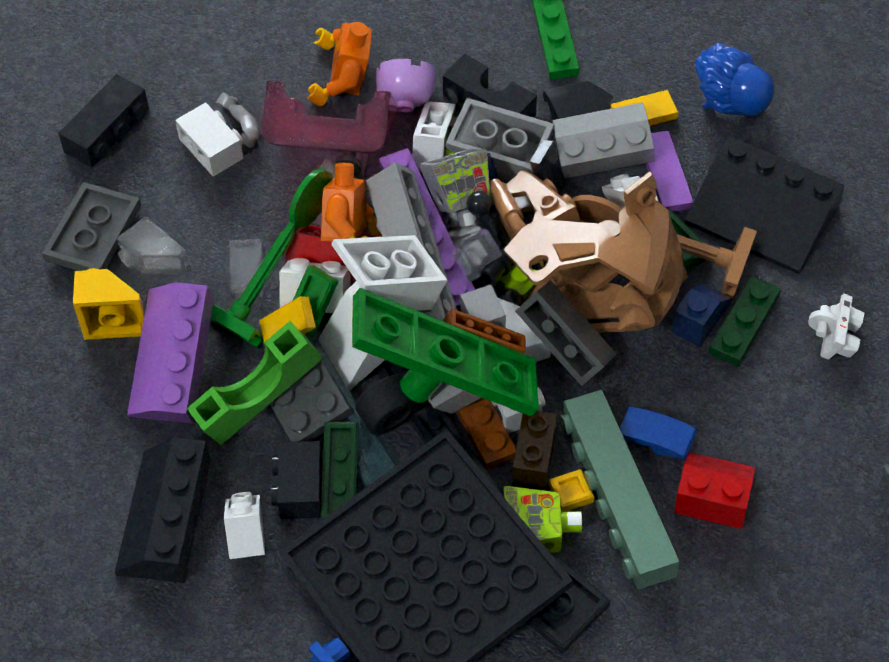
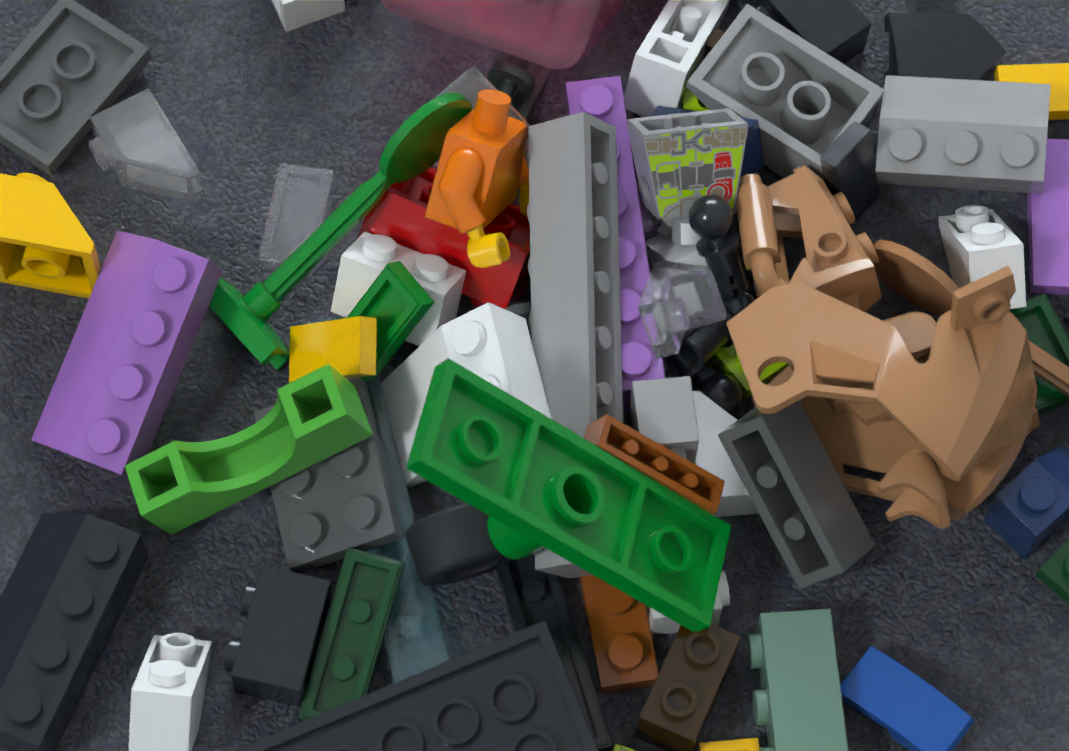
camera: 10 degrees right, 10 degrees up
(393, 269) = (520, 321): white slope -> none

